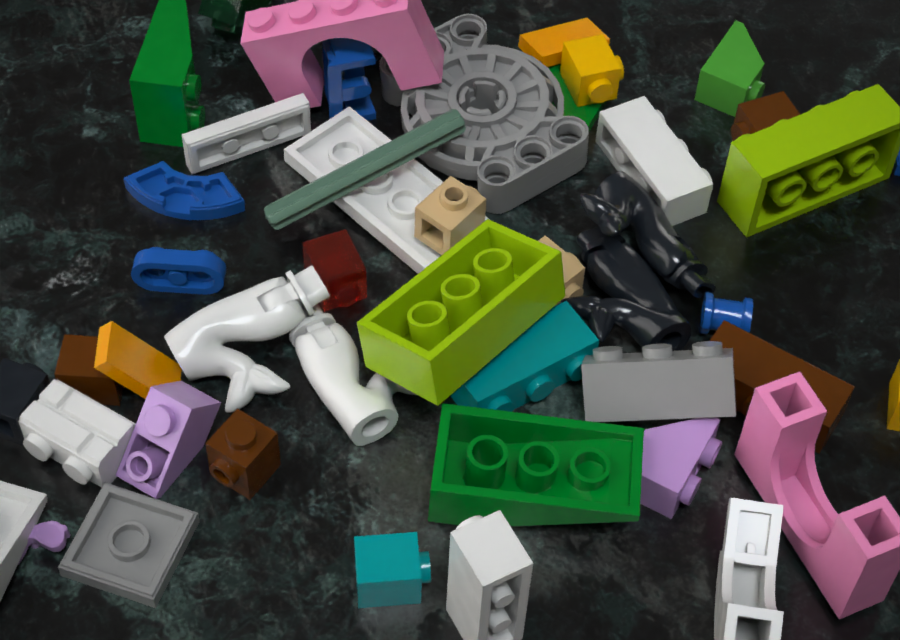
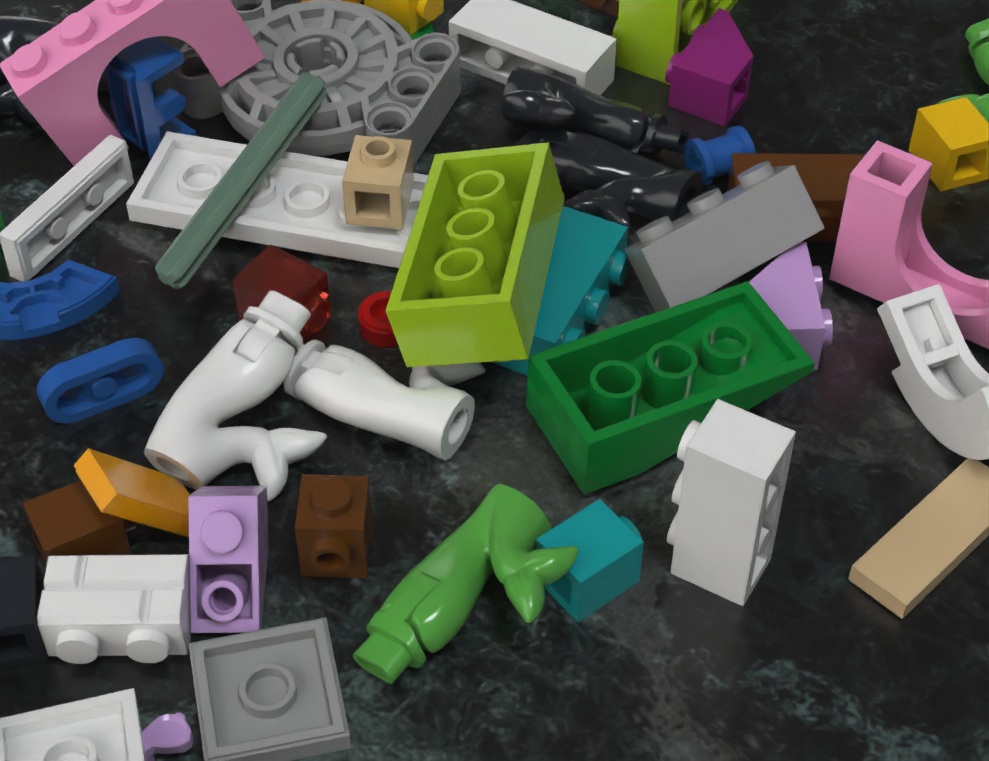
camera: 30 degrees left, 5 degrees down
(281, 534) = (445, 585): none -> bright green piece
(775, 243) = (712, 71): none -> magenta slope

